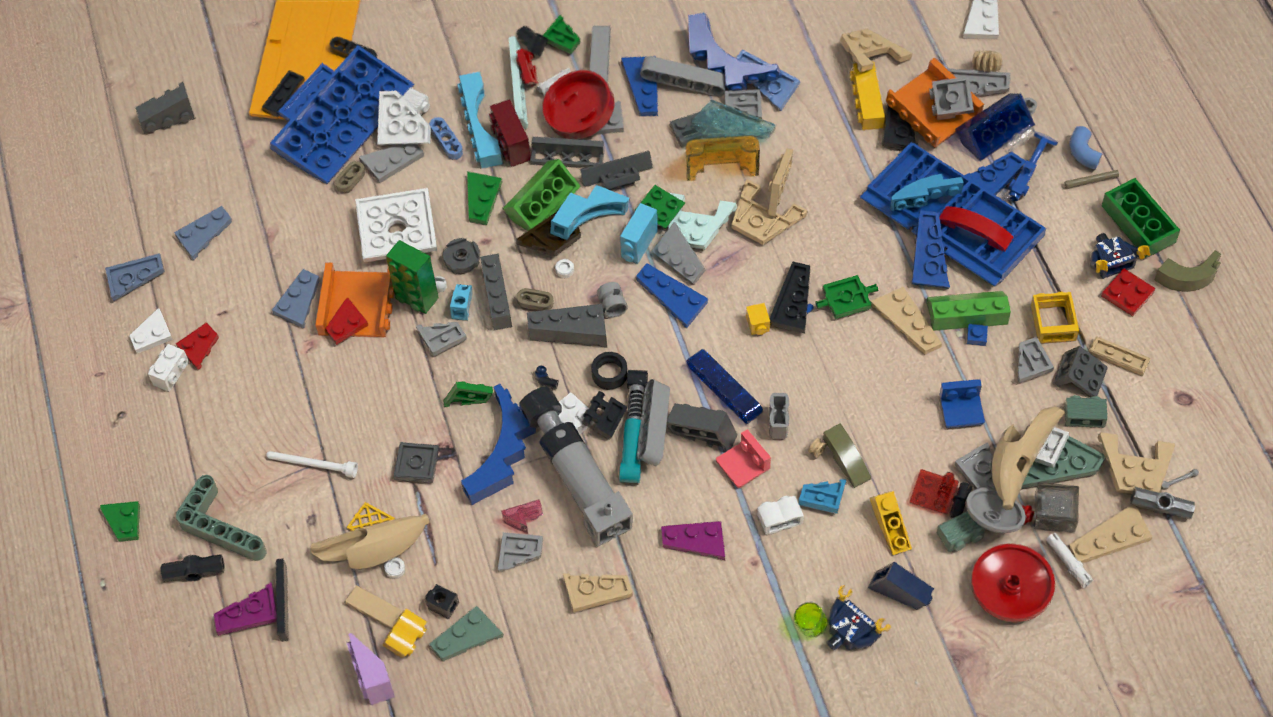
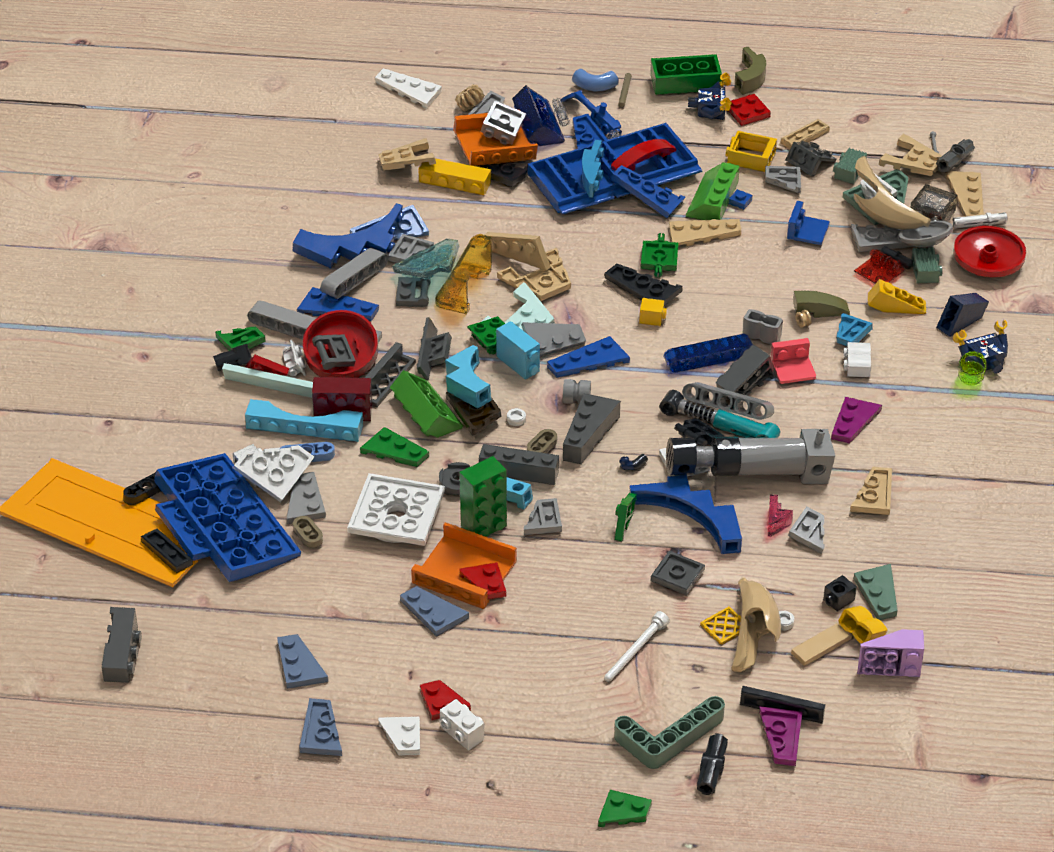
camera: 70 degrees left, 15 degrees down
(568, 105) = (338, 348): none -> dark grey plate
(609, 383) = (650, 408): black tyre -> none

